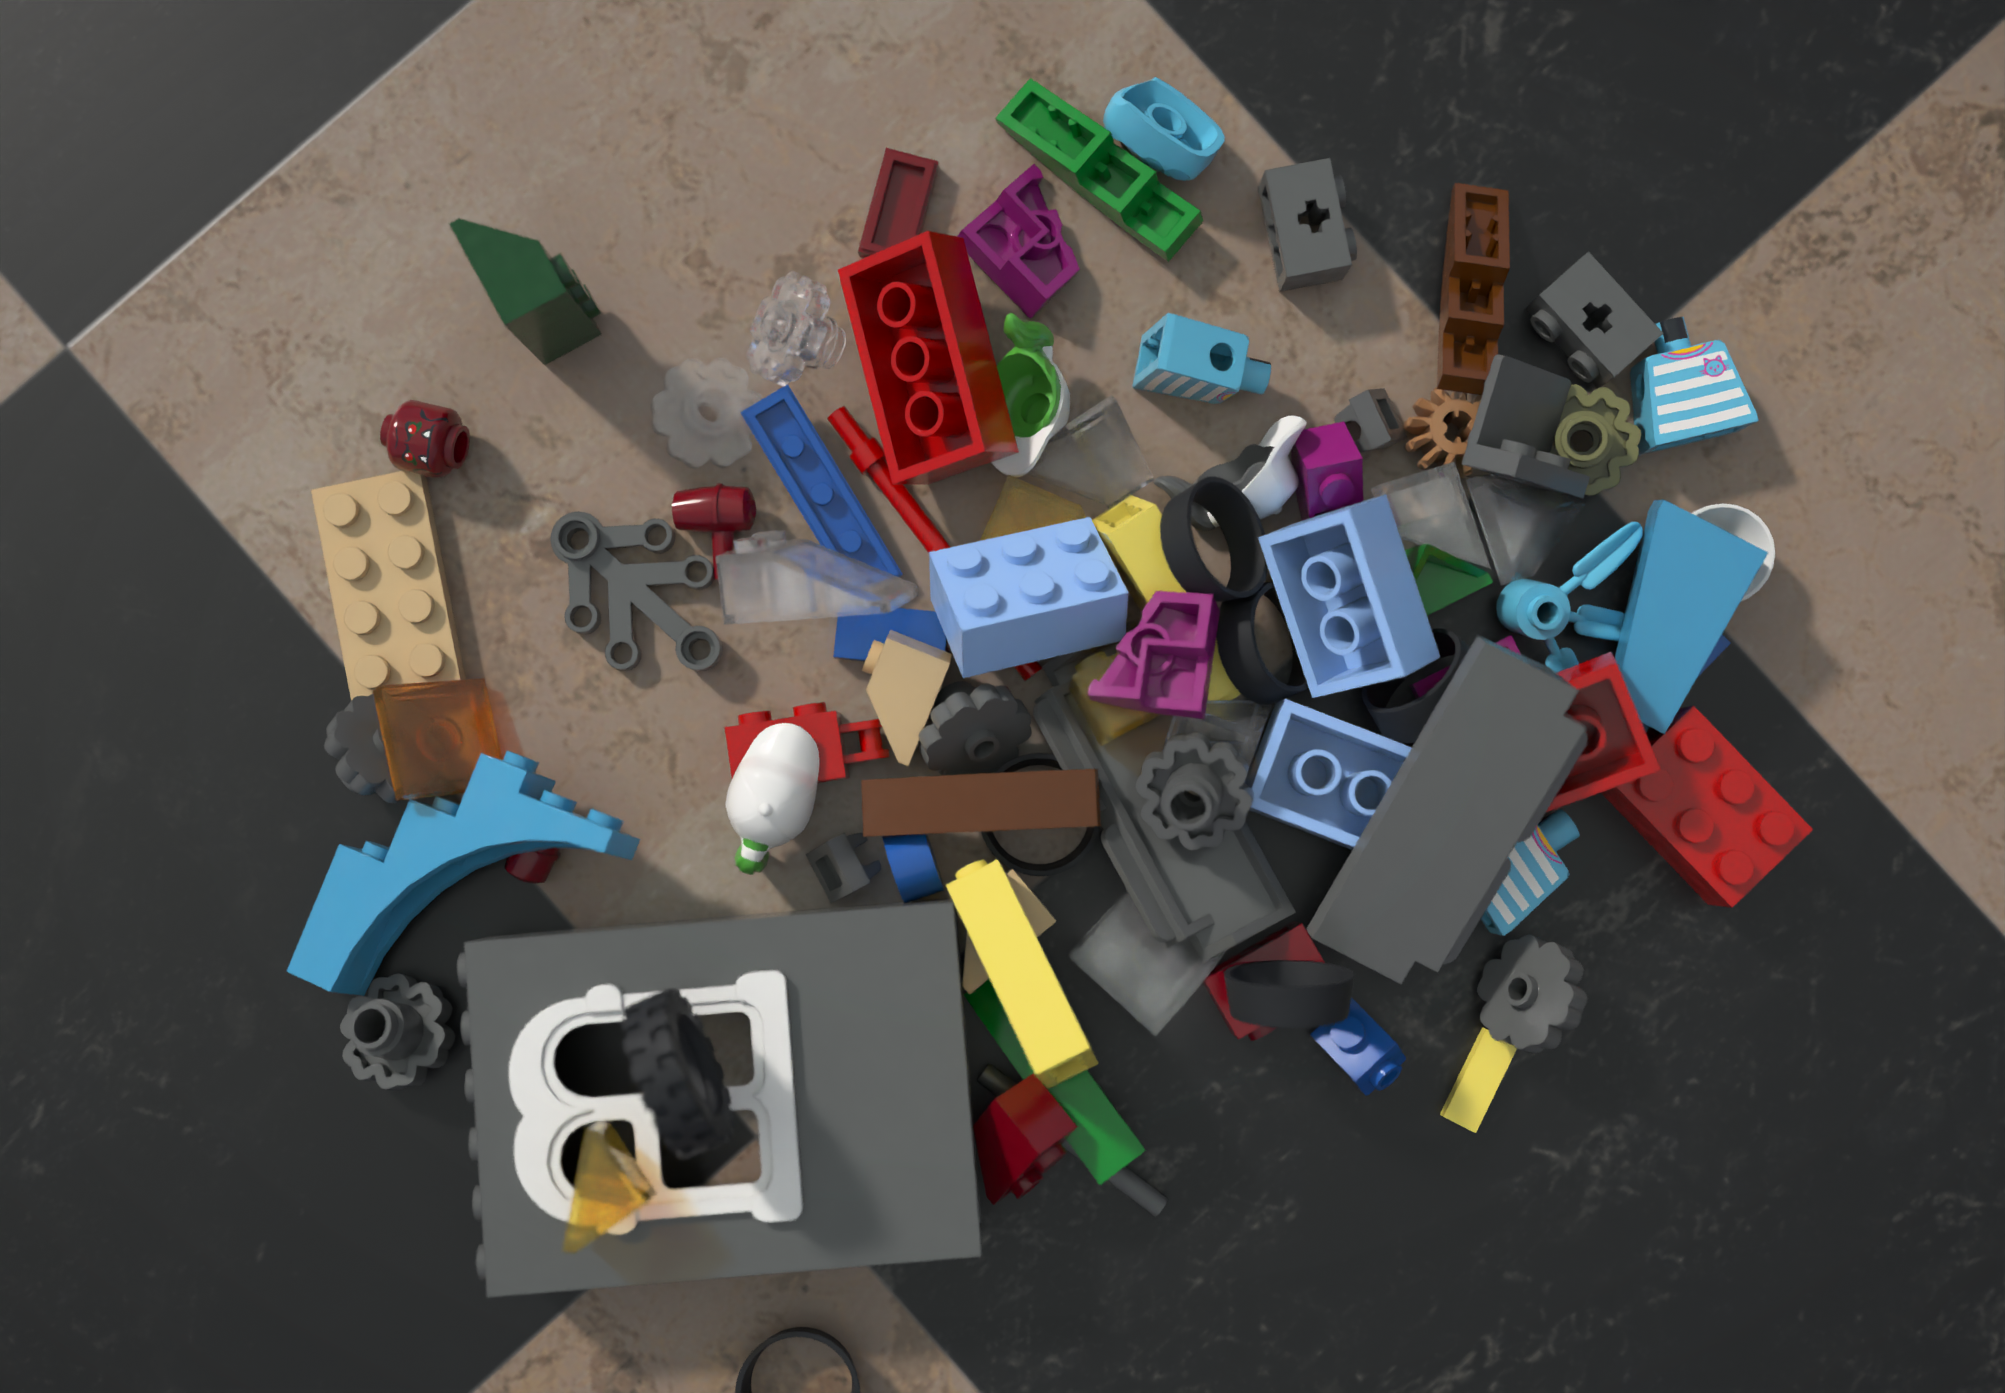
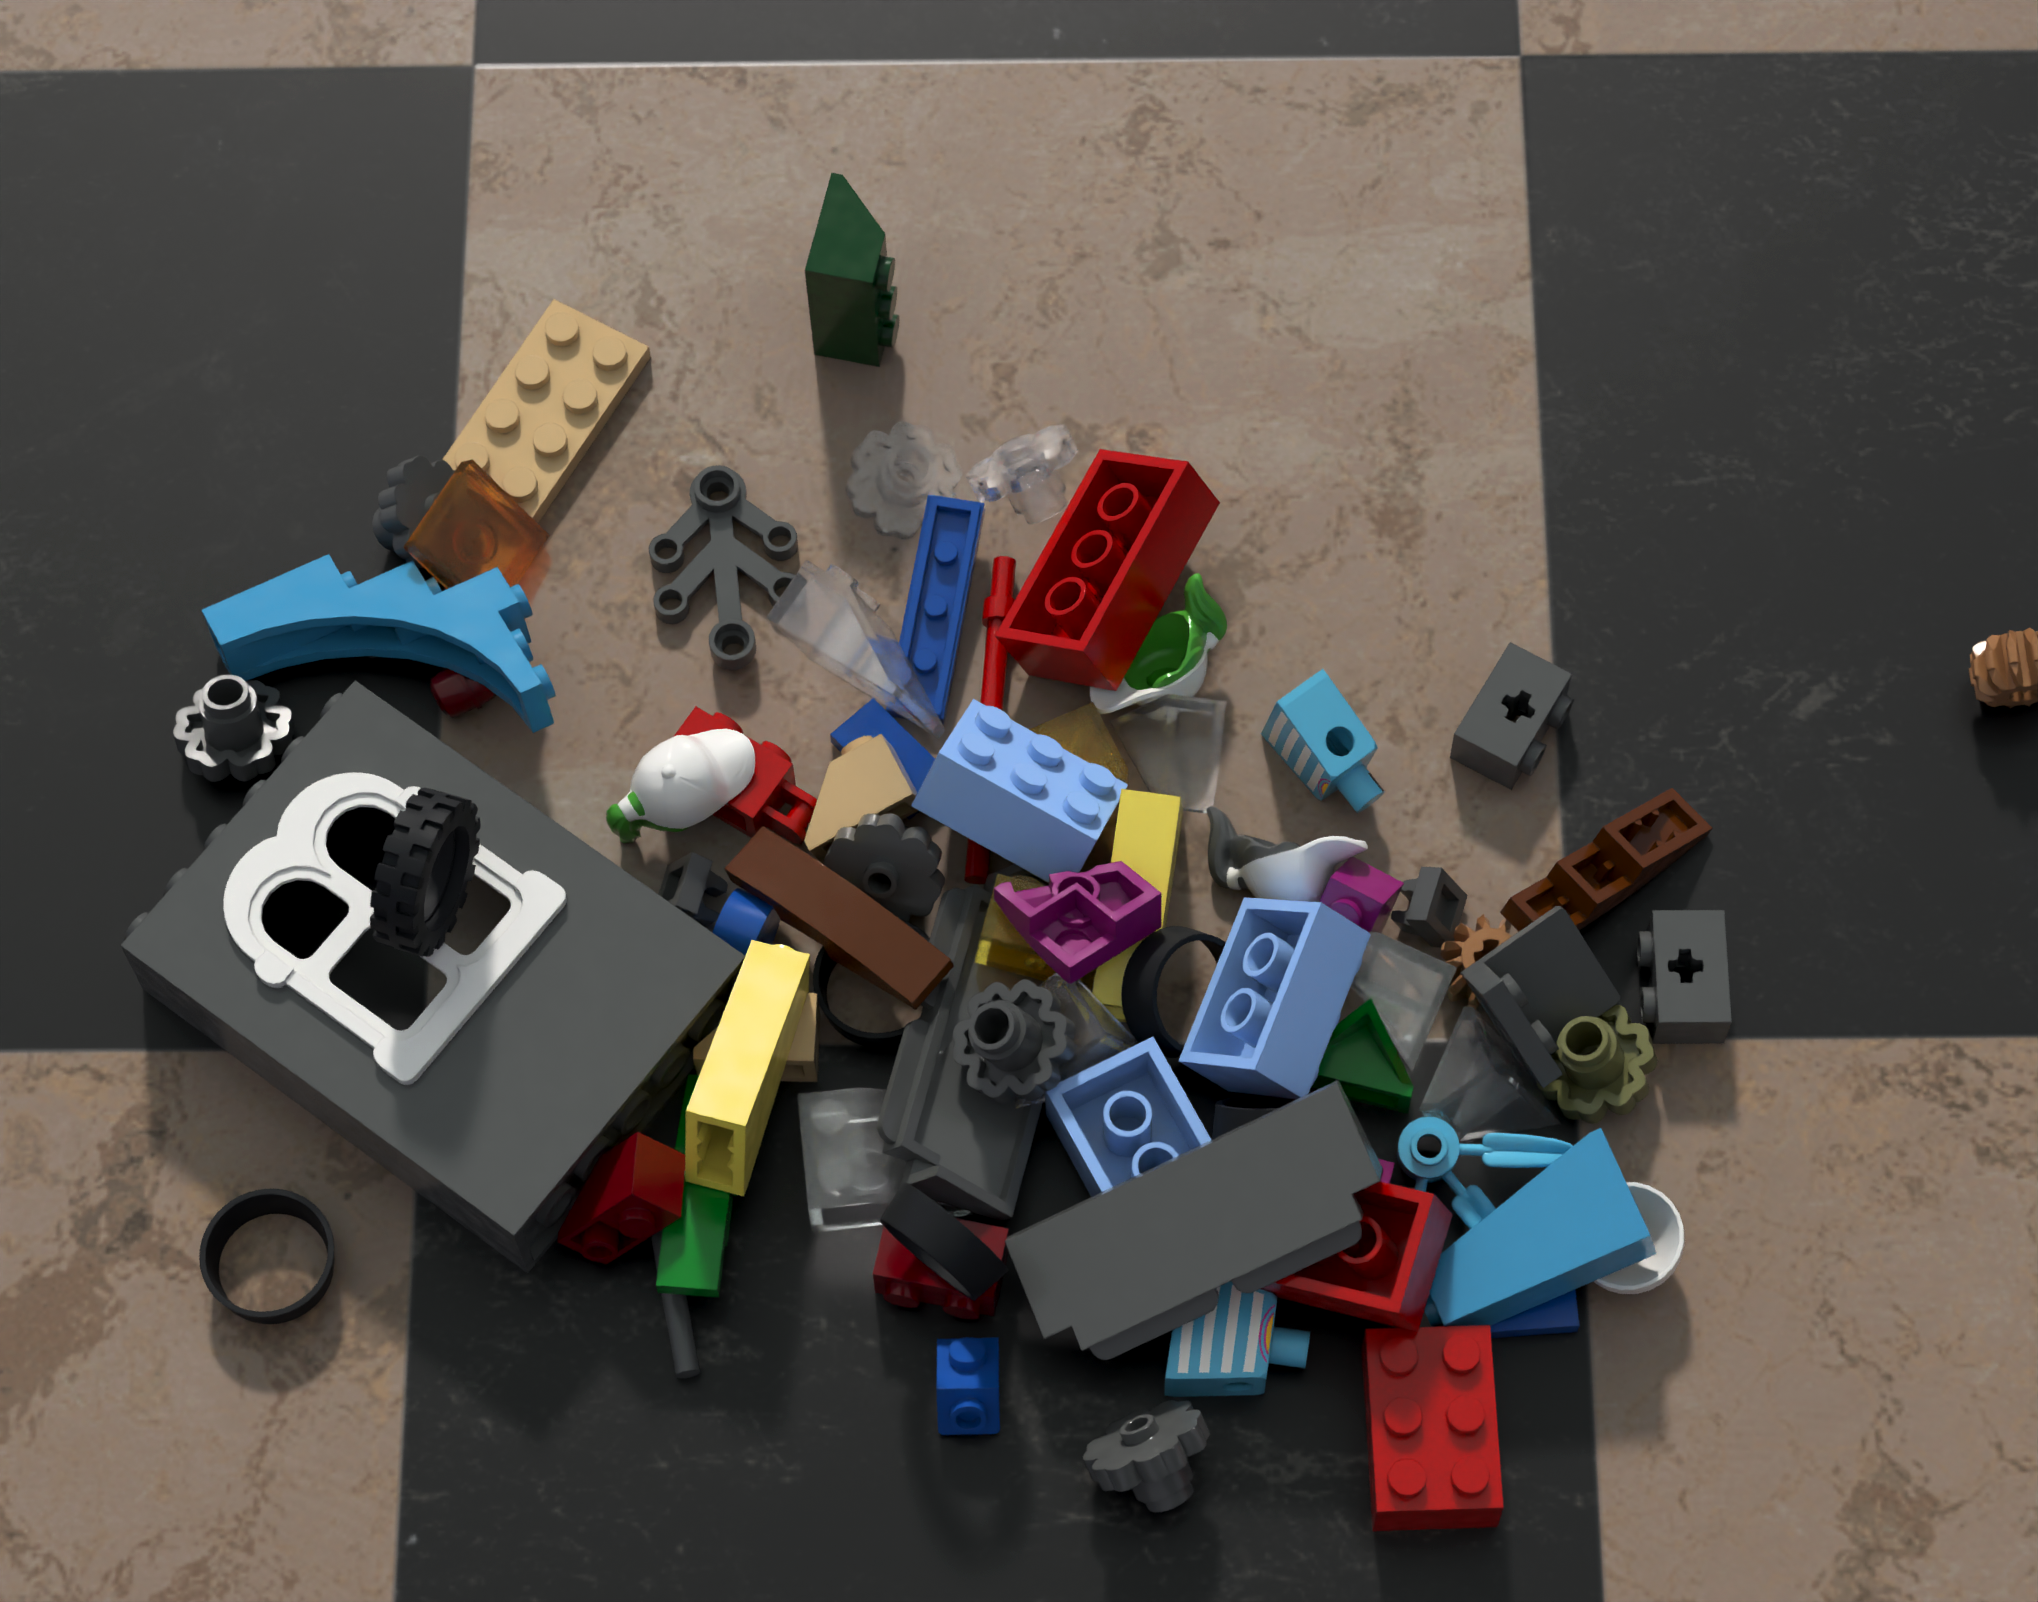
camera: 45 degrees right, 20 degrees down
(425, 439) = (673, 328): dark red head -> none
(606, 1187) = (285, 927): clear yellow slope -> none
(715, 511) = (836, 545): dark red piece -> none
(898, 201) = (1210, 444): dark red tile -> none
(1022, 244) = (1269, 555): magenta slope -> none
(1099, 169) = (1383, 549): green slope -> none
(1163, 129) = (1460, 556): medium azure piece -> none
(1241, 530) = (1244, 864): black tyre -> none
(1478, 1081) = (1043, 1501): light yellow piece -> none
(1687, 392) = (1716, 1095): medium azure torso -> none

